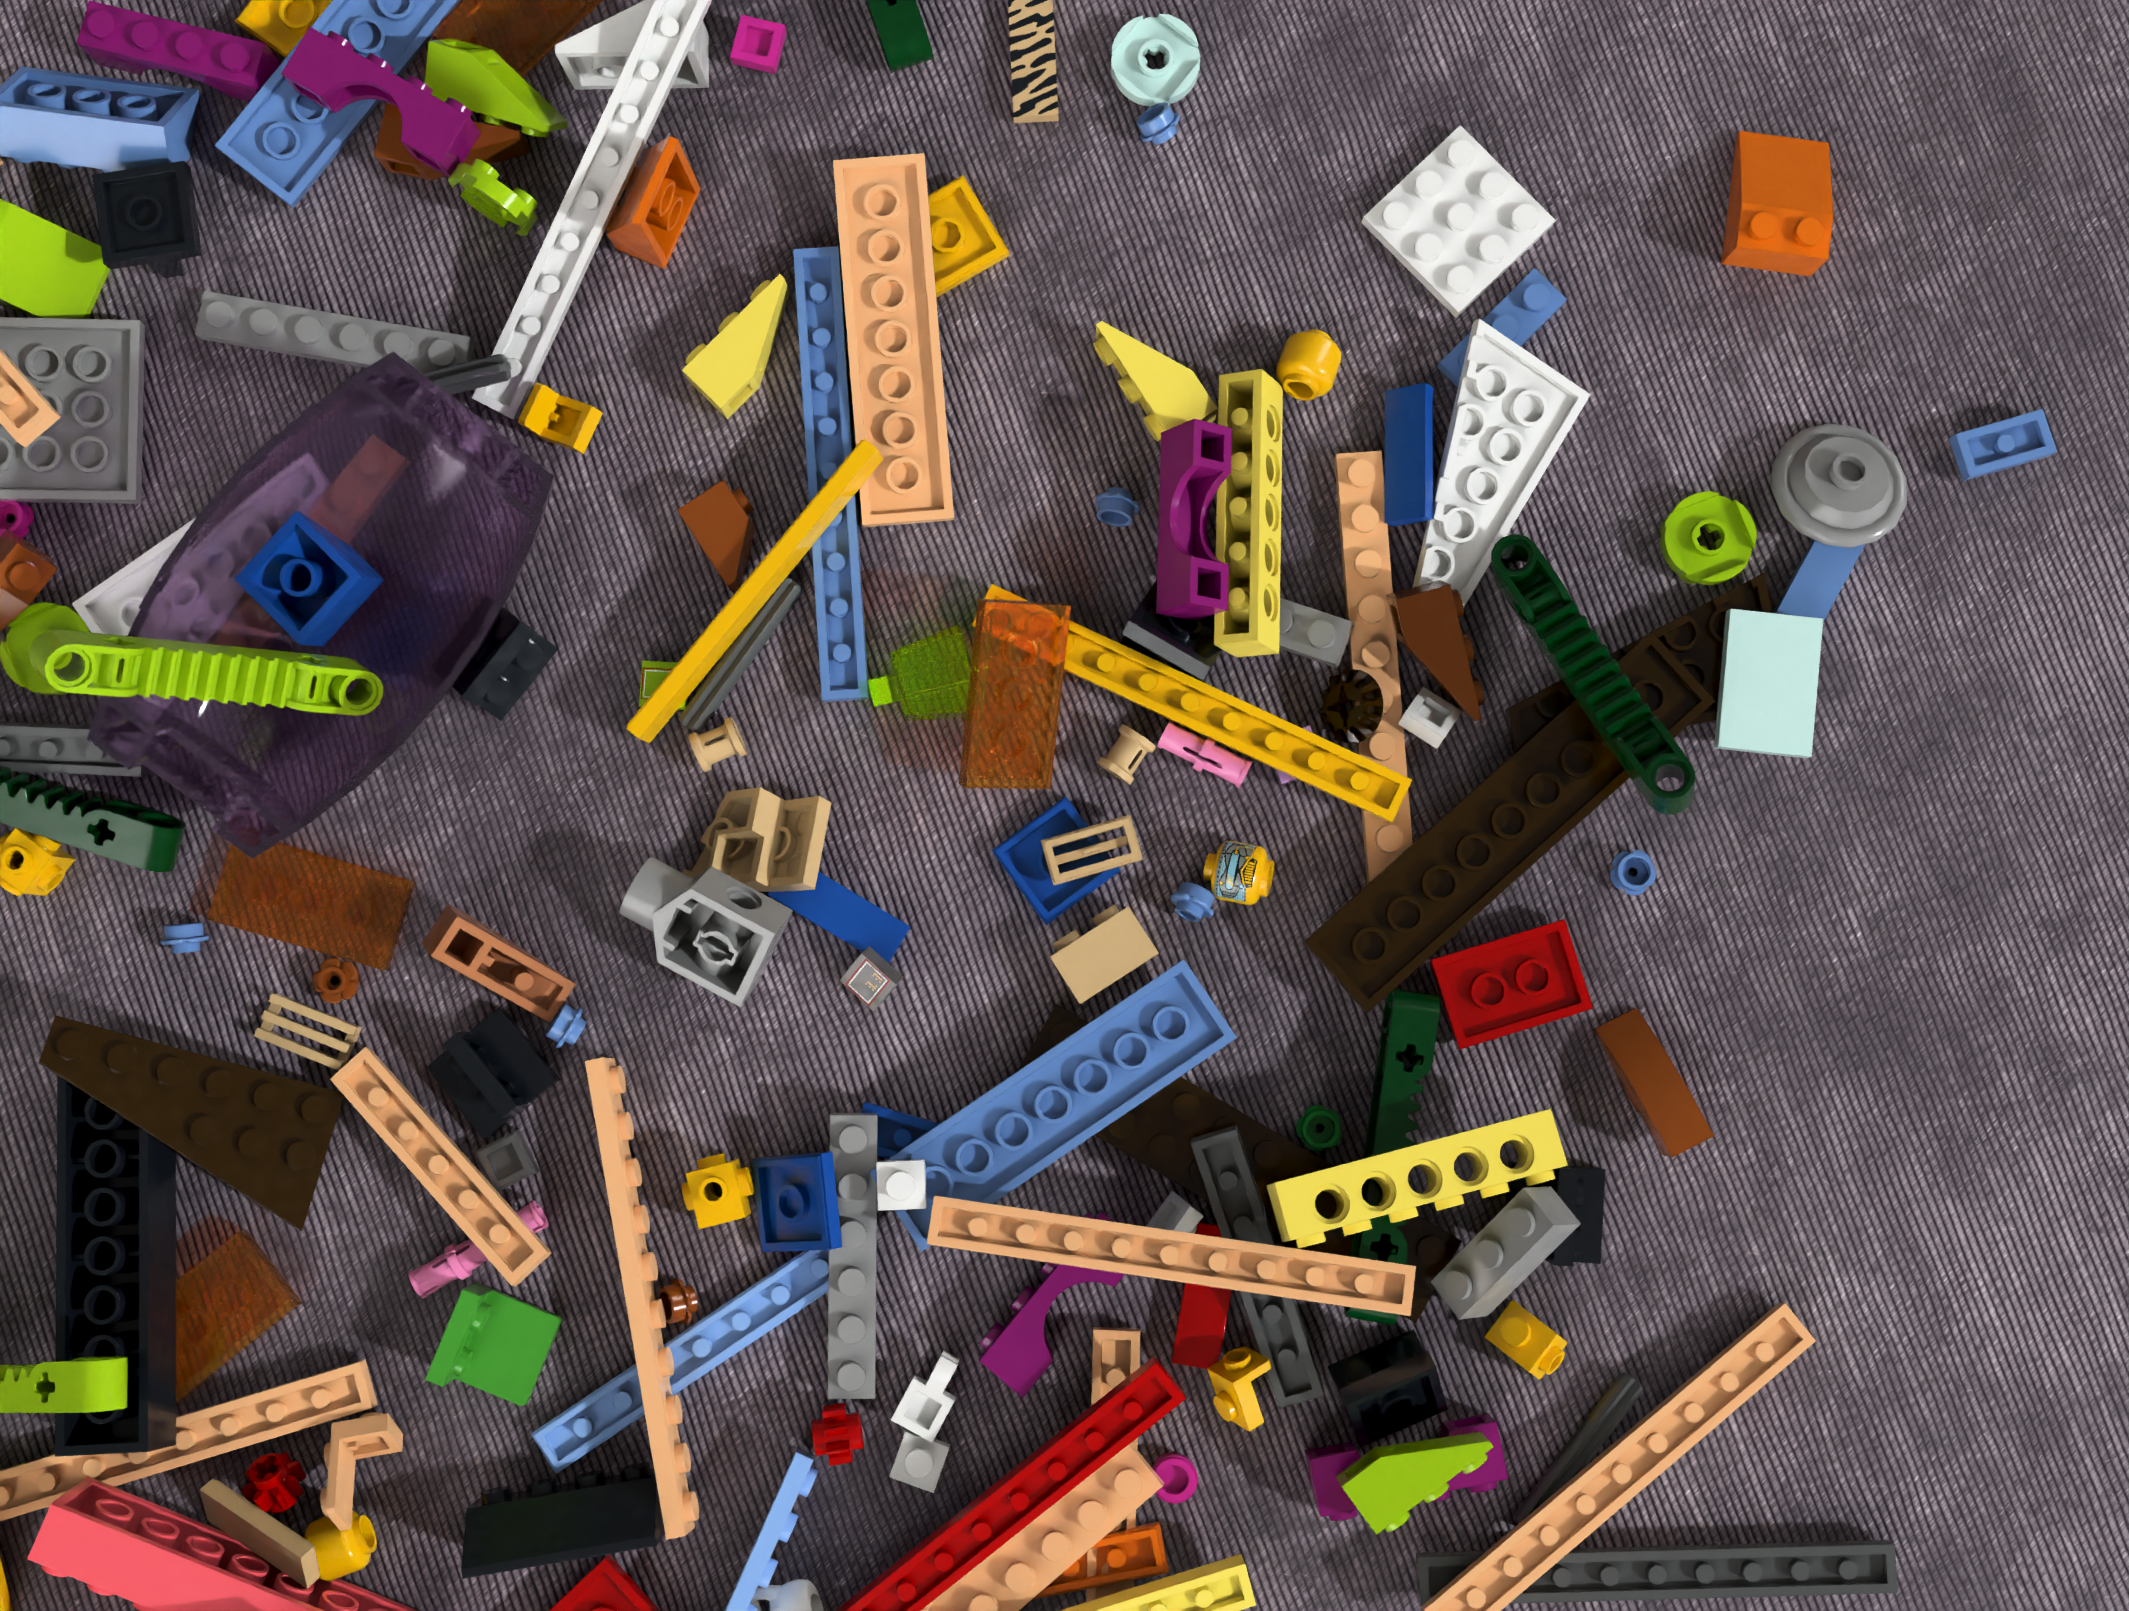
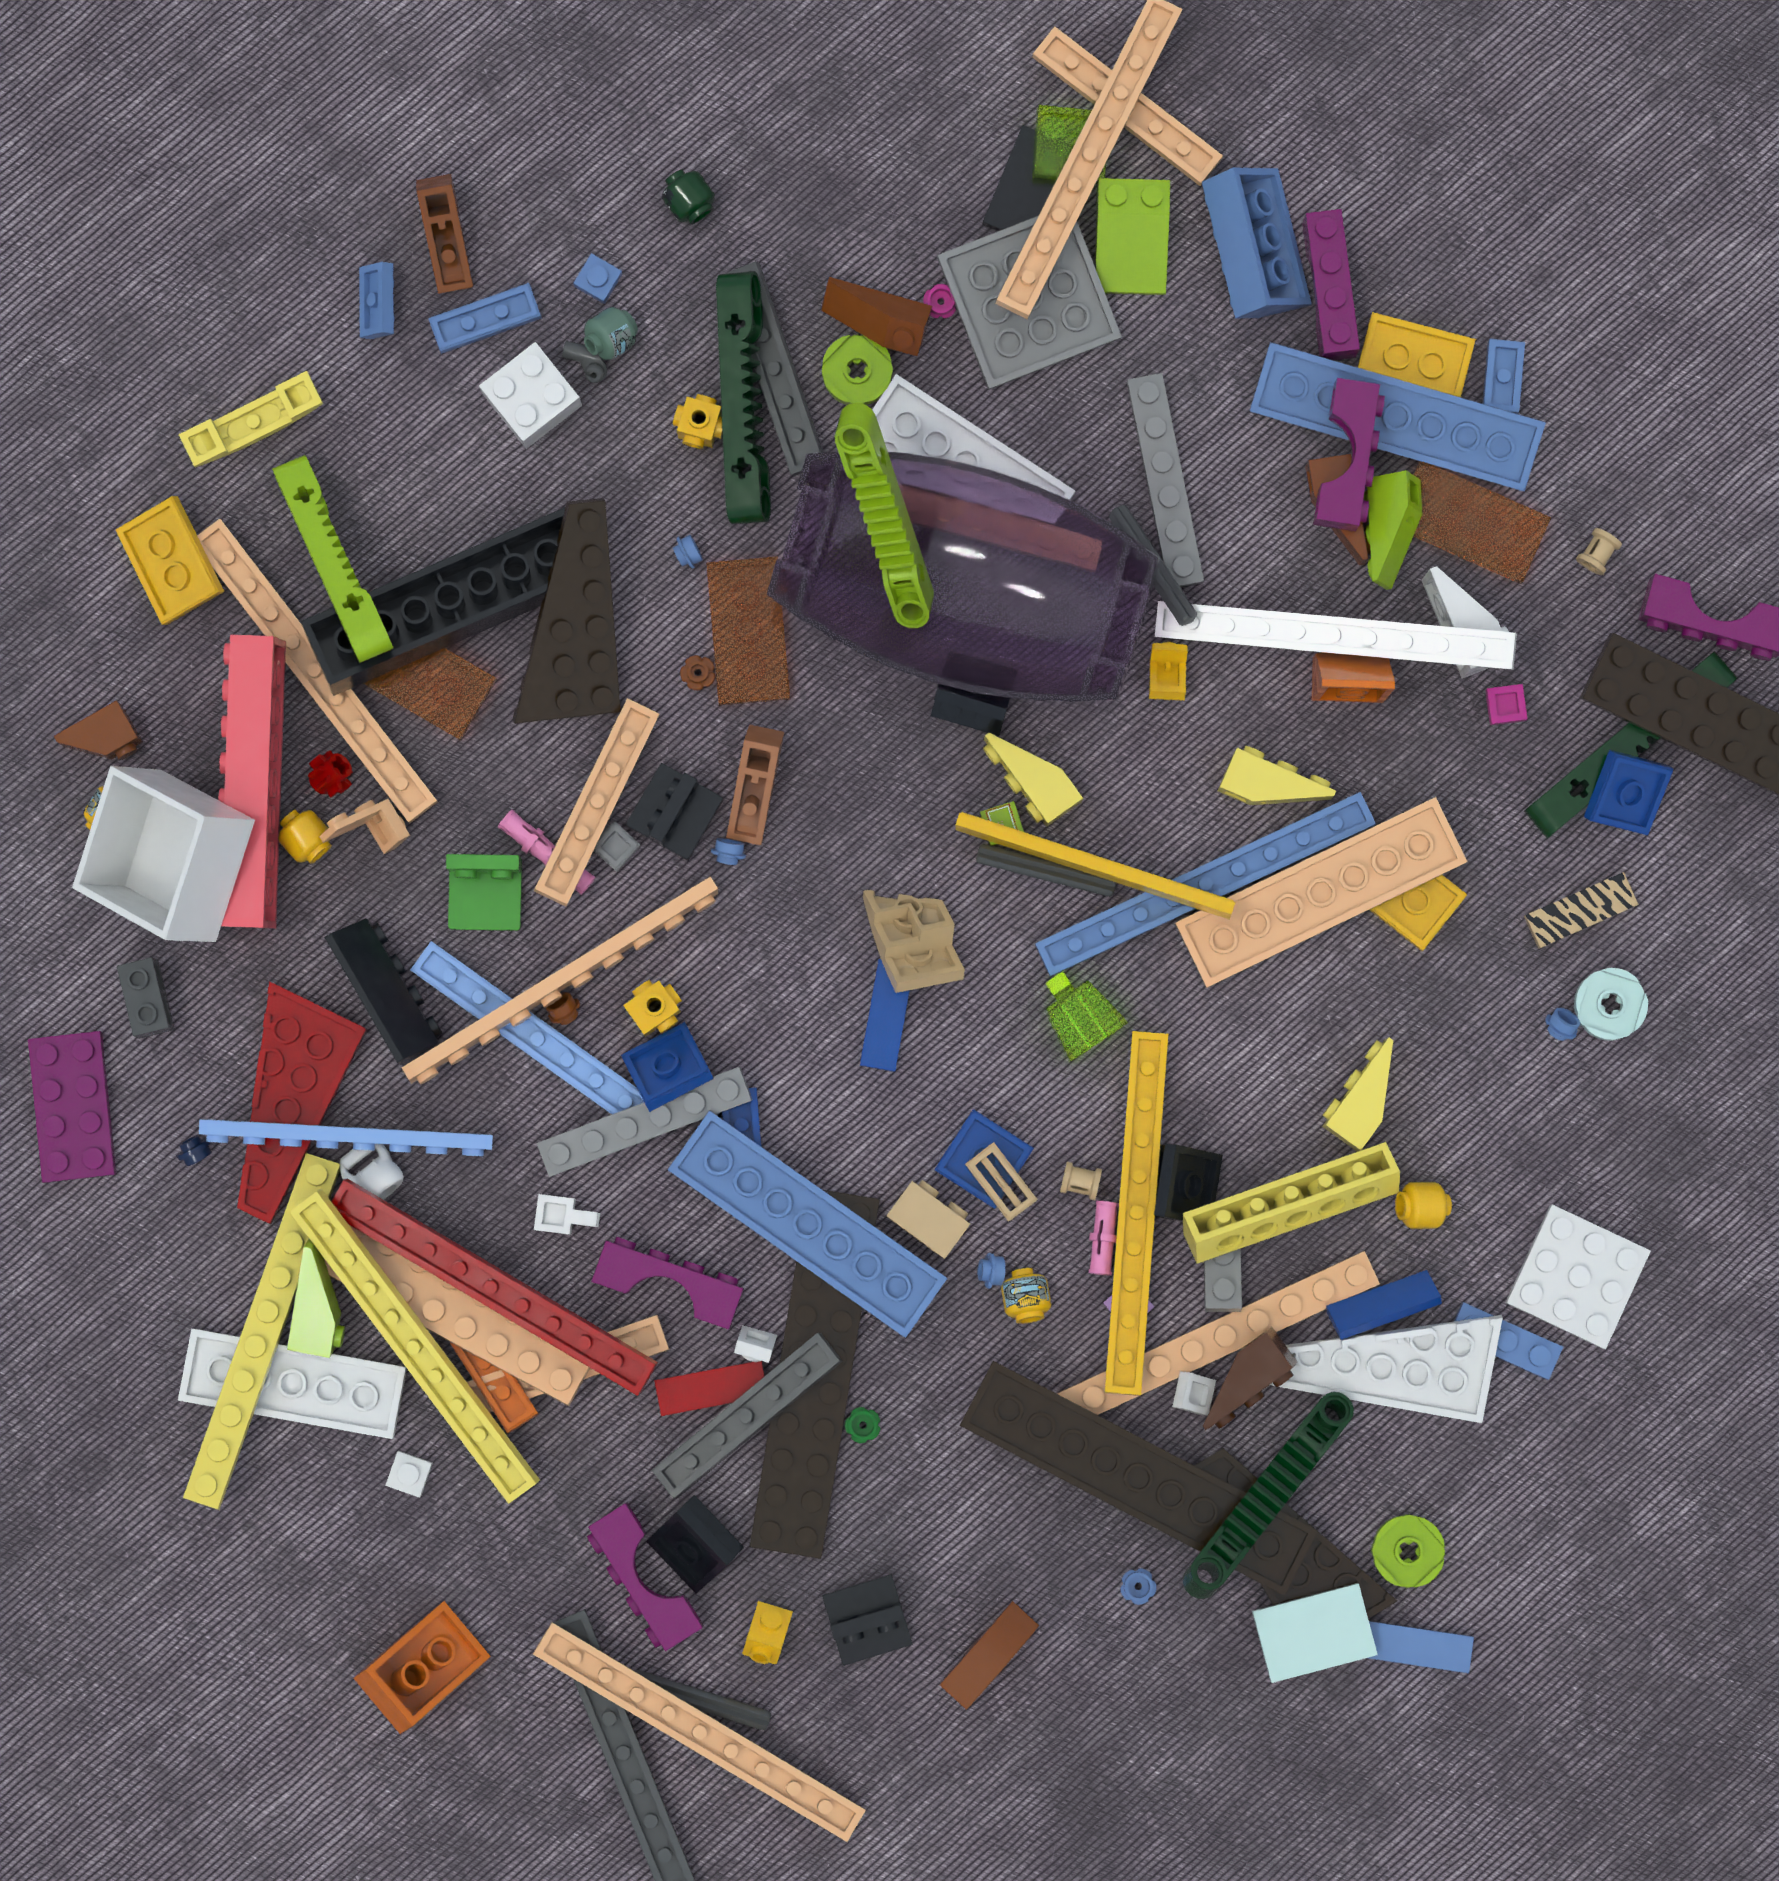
camera: 65 degrees right, 0 degrees up
(147, 217) = (1198, 316): black bracket -> none
(260, 1532) = (295, 779): tan tile -> none
(271, 1017) = (653, 636): tan tile -> none
(308, 580) = (978, 543): blue slope -> none
(493, 197) = (1313, 550): lime plate -> none
(630, 620) = (1042, 783): none -> light yellow slope
(707, 926) = (839, 926): light grey brick -> none
(717, 744) = (973, 880): tan bush -> none
(722, 530) = (1131, 822): dark orange slope -> none
(837, 1434) = (514, 1159): red gear -> none
(871, 978) = (846, 1057): flat silver tile -> none
(901, 1184) = (709, 1137): white plate -> none
(919, 1461) = (516, 1226): white plate -> none
(1014, 694) = (1091, 1082): clear orange plate -> none
(1116, 507) = (1261, 1103): medium blue plate -> none
(1172, 1255) = (734, 1347): light nougat plate -> none
(1178, 1477) = (573, 1417): dark pink tile -> none
(1192, 467) = (1305, 1149): magenta arch -> none
(1233, 1386) = (653, 1431): yellow bracket -> none
(1363, 719) = (1172, 1344): dark brown gear -> none
(1400, 1476) = (638, 1568): lime slope -> none
(1407, 1026) = (768, 1502): dark green gear -> none
(1505, 1252) = (825, 1588): light grey brick -> none
(1510, 984) = (1021, 1525): red plate -> none
(1531, 1135) = (917, 1572): light yellow brick -> none
(1779, 204) = (1686, 1511): orange slope -> none
(1839, 485) = (1485, 1633): light grey piece -> none
(2002, 445) = (1565, 1747): medium blue plate -> none

